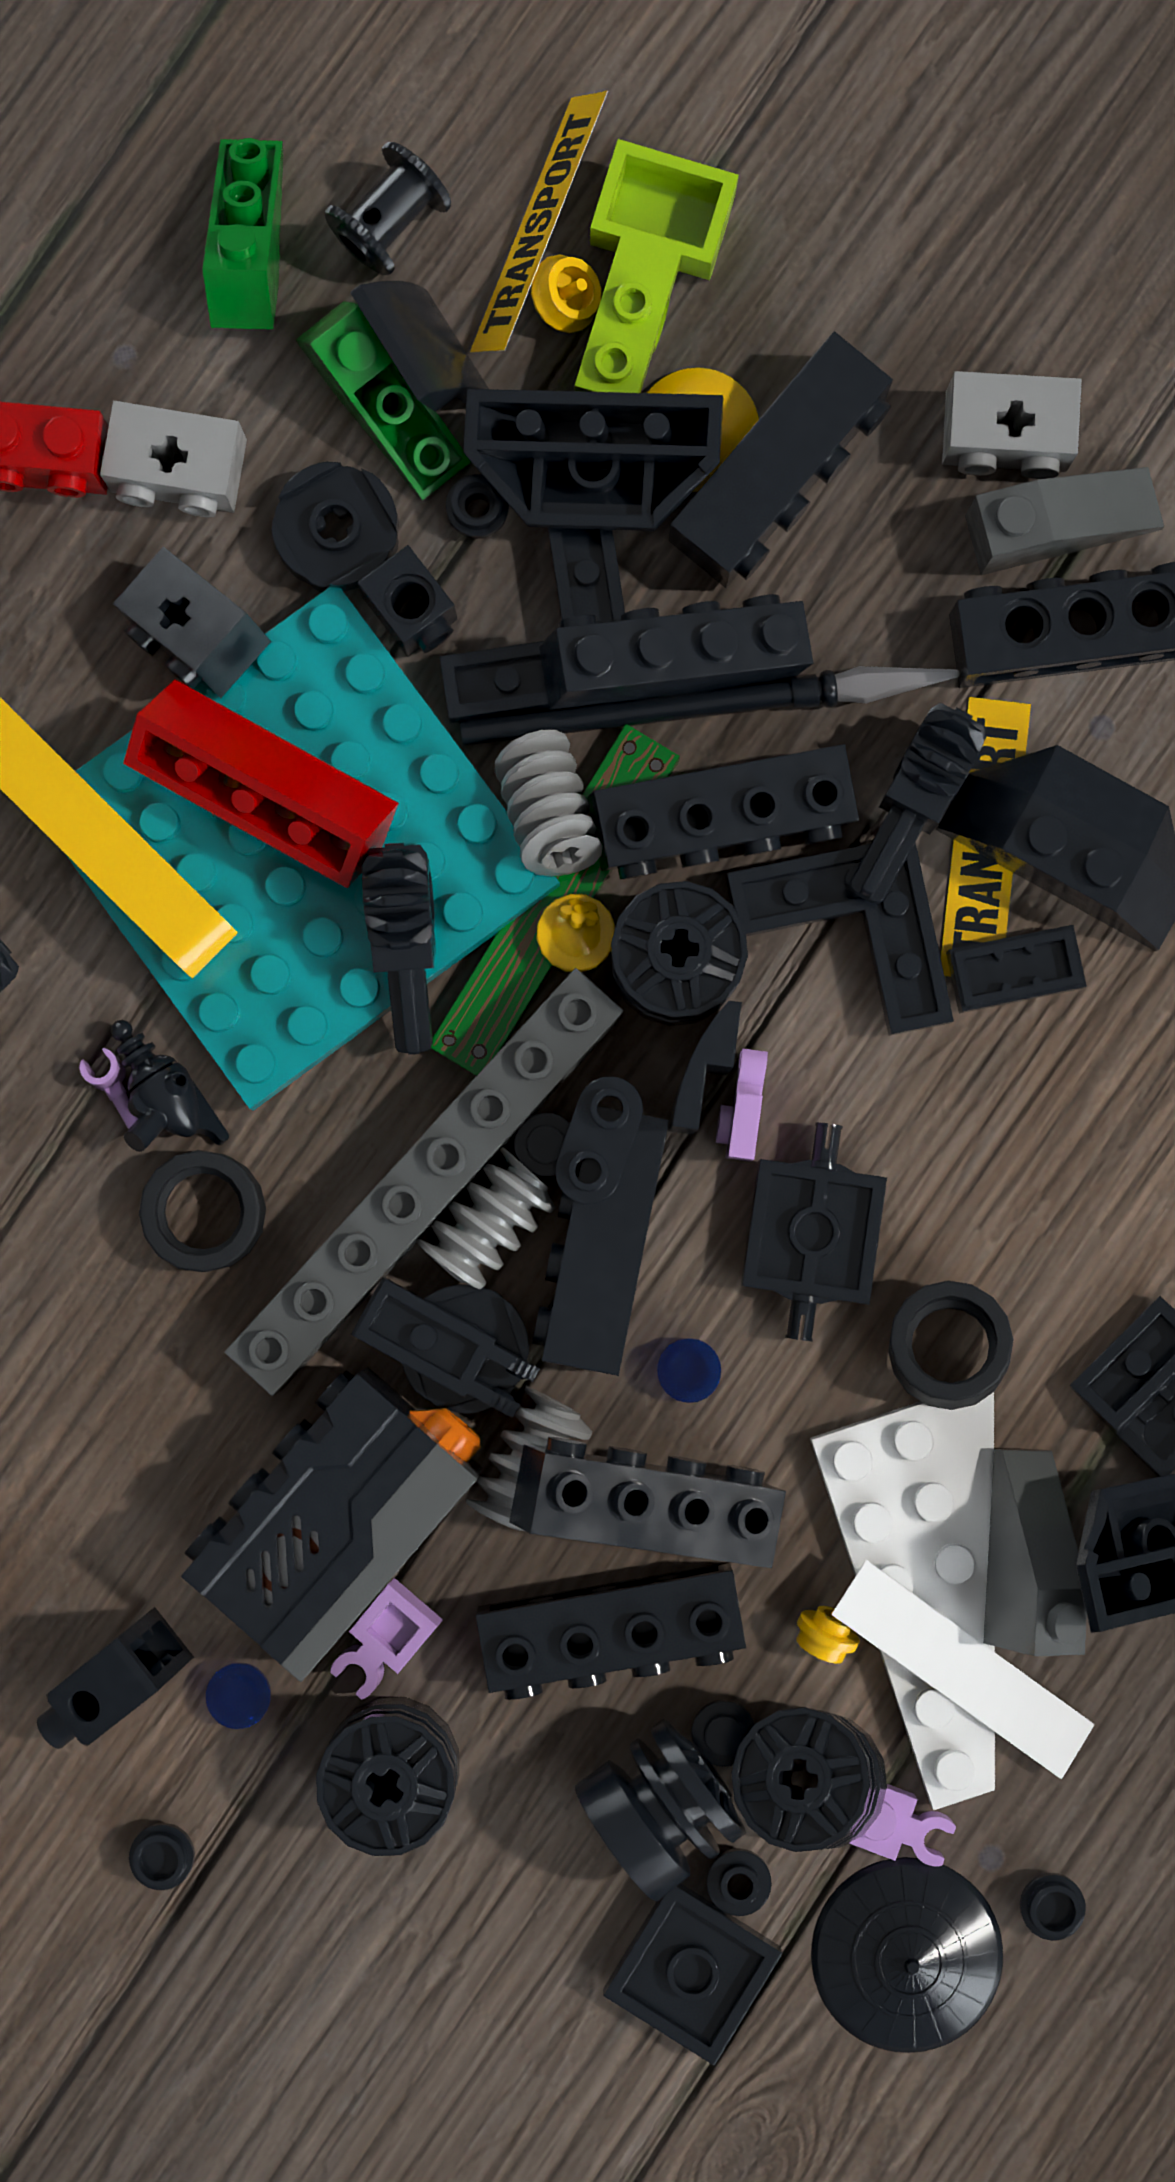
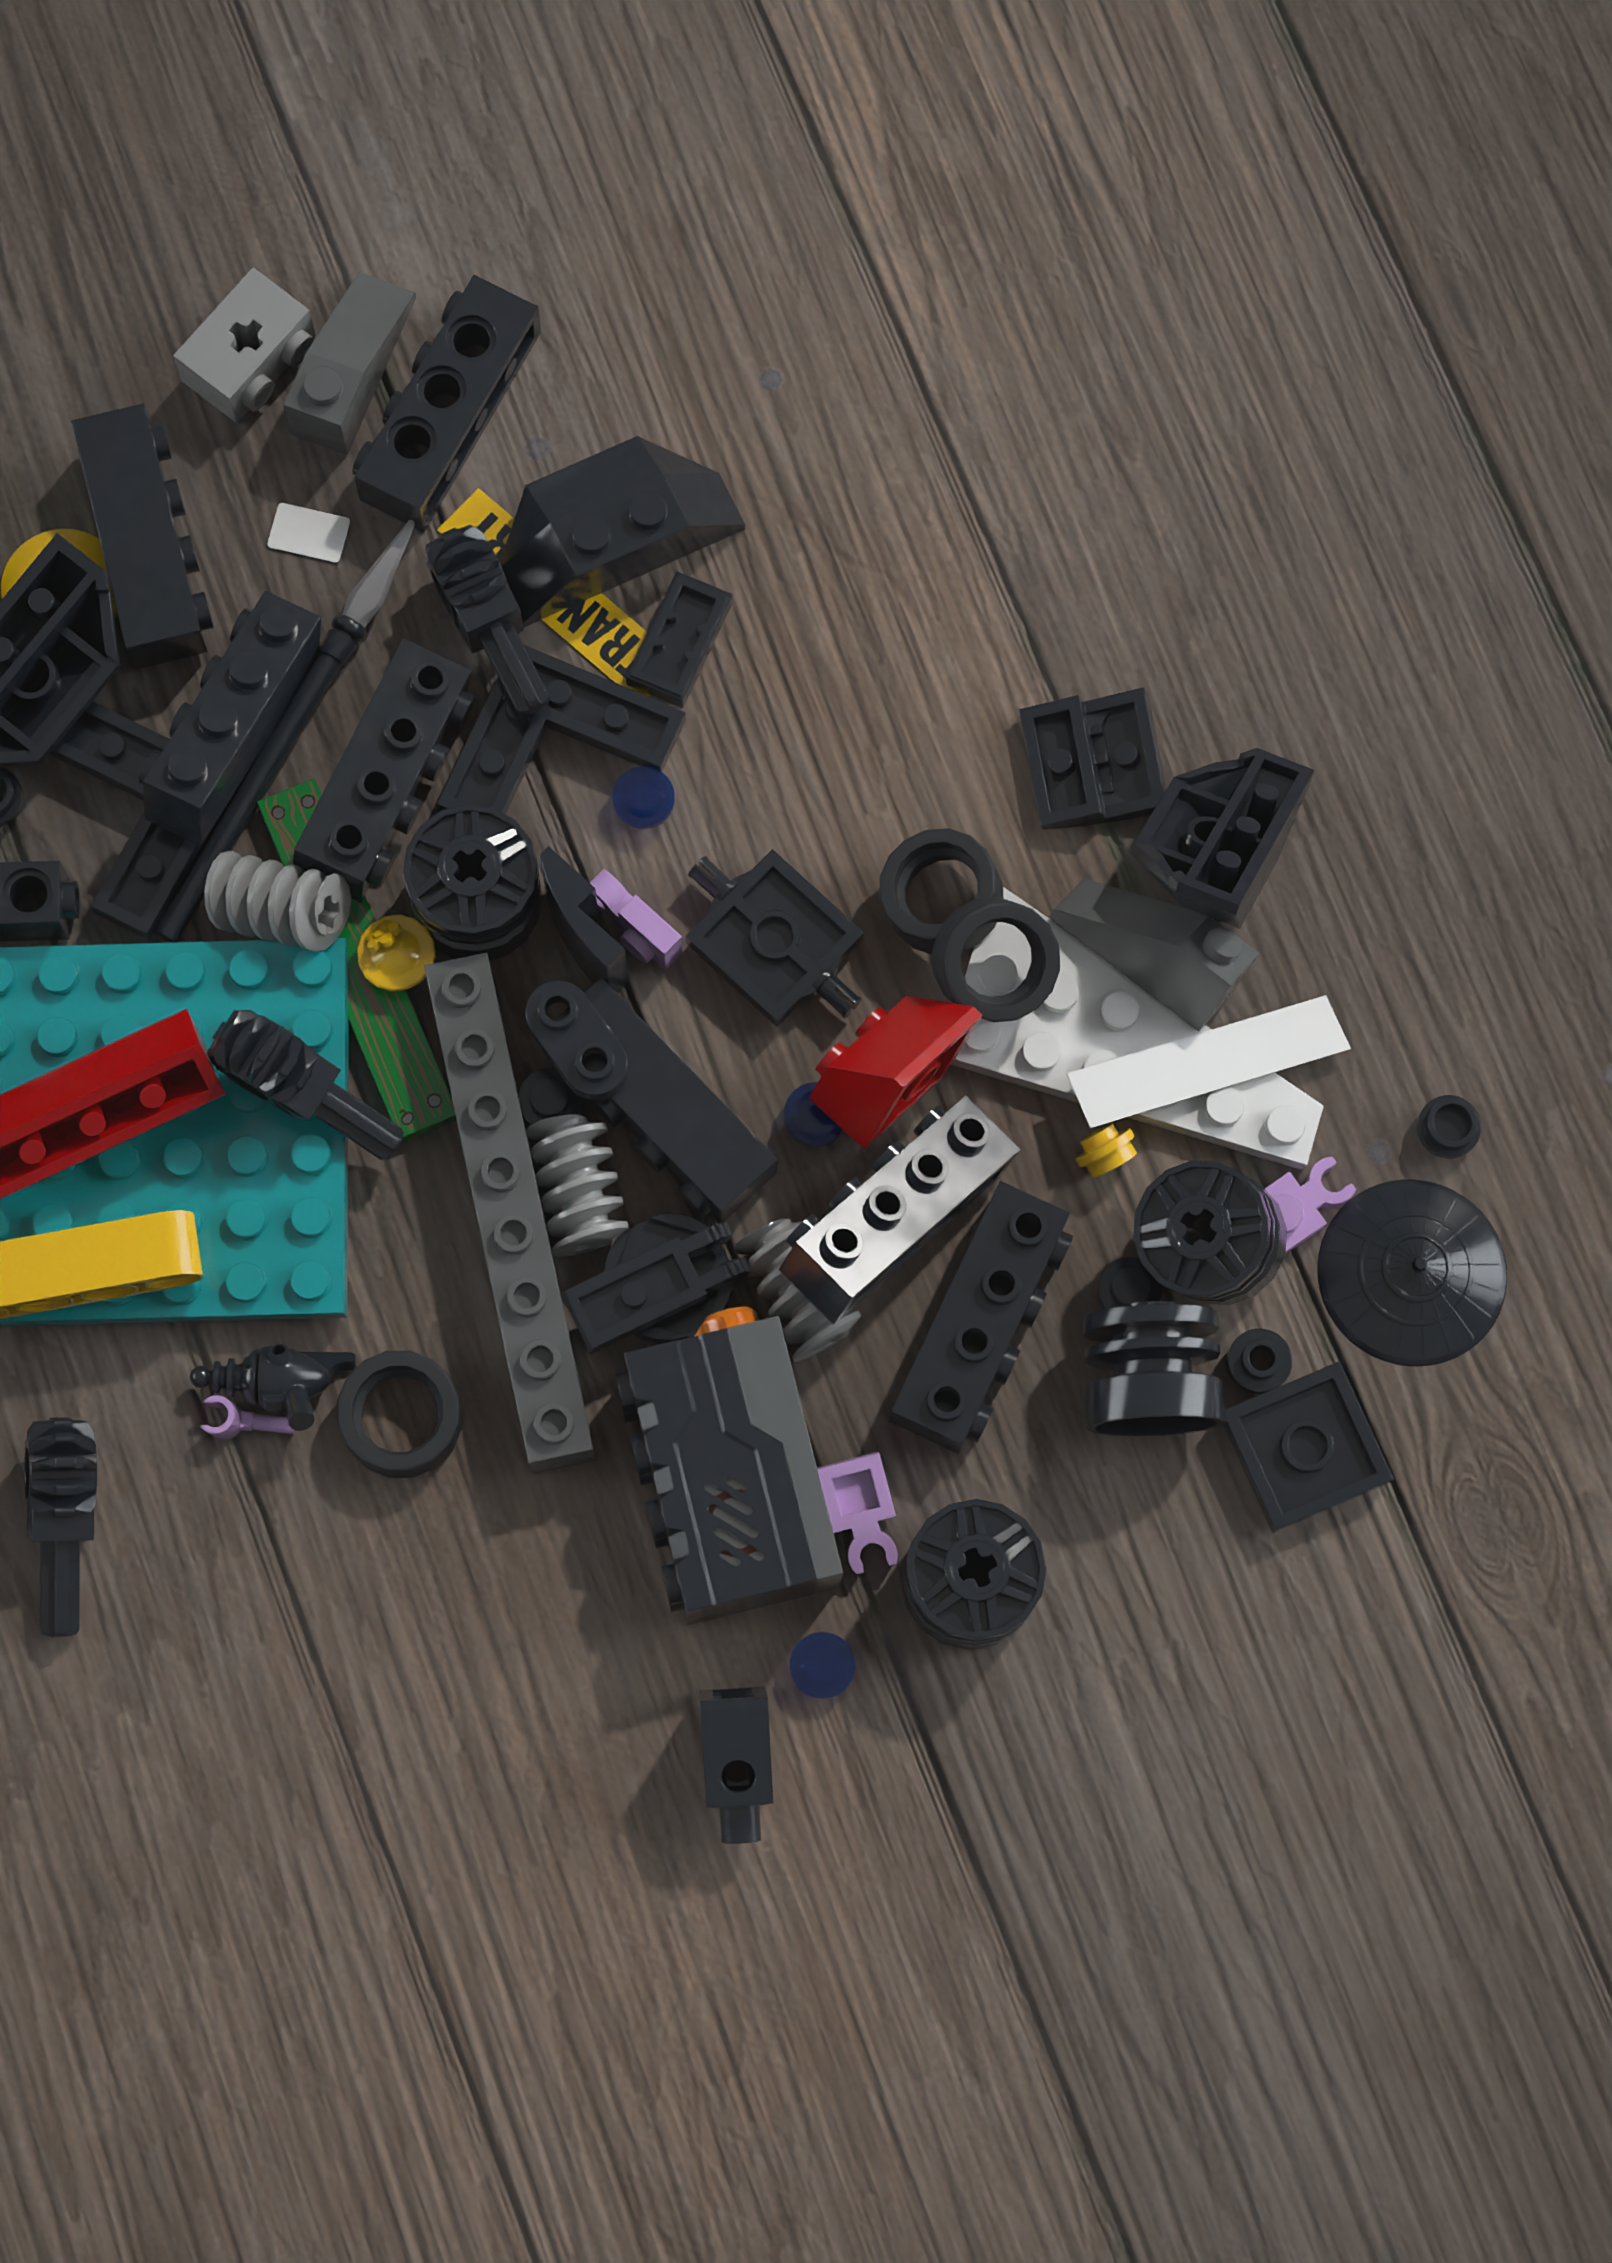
camera: 60 degrees left, 10 degrees down
(161, 1856) = (911, 1824): black plate -> none
(768, 1411) = (890, 1064): none -> red slope
(857, 1037) = (643, 797): none -> clear blue plate
(890, 593) = (308, 532): none -> white sticker
(913, 1484) = (1041, 973): none -> black tyre

